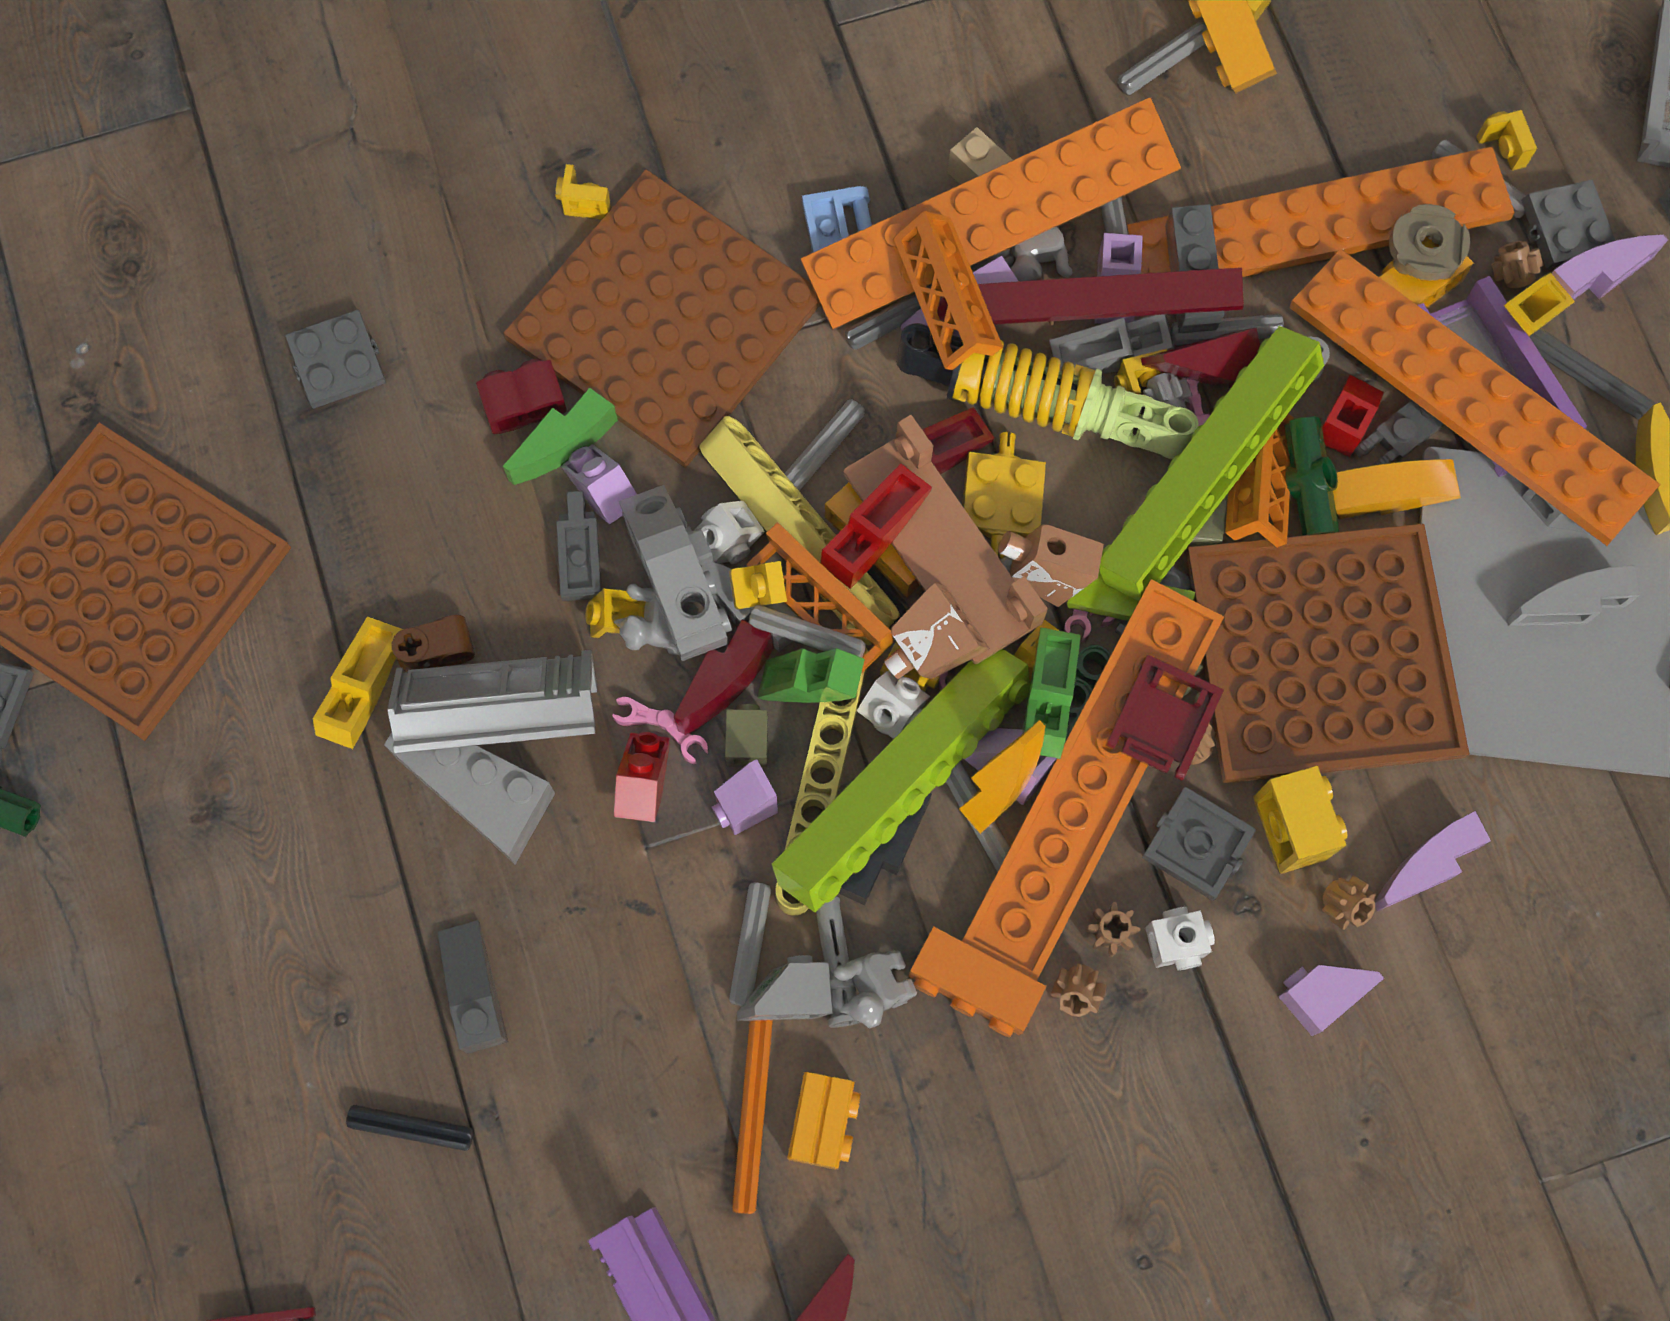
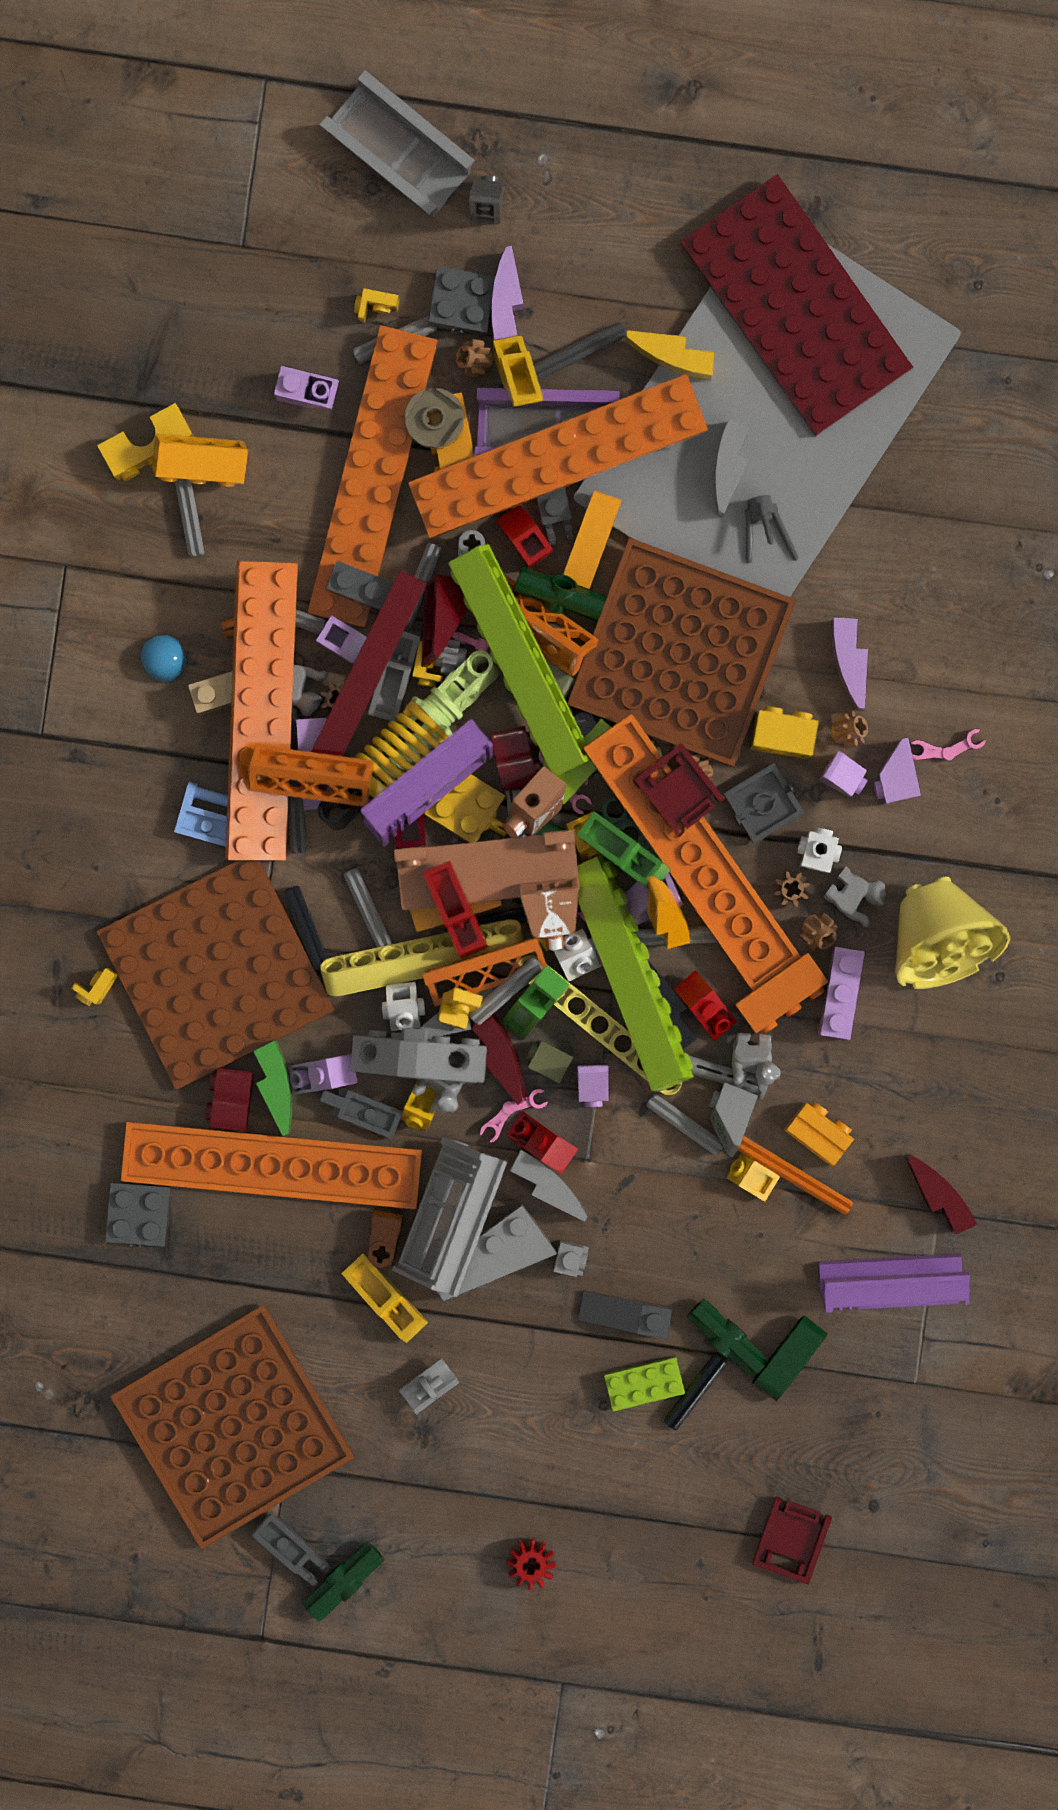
camera: 60 degrees left, 15 degrees up
(104, 1029) = (523, 1557): none -> red gear
(270, 783) = (429, 1386): none -> light grey hips
(391, 1055) = (644, 1383): none -> lime piece
(465, 482) = (271, 1165): none -> orange plate
(498, 1134) = (727, 1338): none -> dark green piece
(509, 1231) = (790, 1358): none -> dark green beam
(510, 881) = (571, 1258): none -> light grey brick
(591, 810) = (548, 1185): none -> light grey slope
(724, 1063) = (752, 1177): none -> yellow bracket
(769, 385) = (305, 926): none -> black axle
(911, 893) = (705, 1005): none -> red slope
(990, 103) = (163, 658): none -> dark azure hair
(1011, 421) = (427, 782): none -> medium lavender piece
(1017, 1057) = (841, 993): none -> lavender brick
(1095, 514) = (514, 757): none -> dark red brick
(1148, 1010) = (851, 895): none -> light grey animal
(1161, 1155) = (944, 935): none -> light yellow cone
(1291, 920) = (844, 775): none -> lavender slope
(1372, 102) = (305, 389): none -> lavender slope
(1388, 1046) = (946, 753): none -> bright pink piece
(1544, 664) = (762, 511): none -> dark grey plant

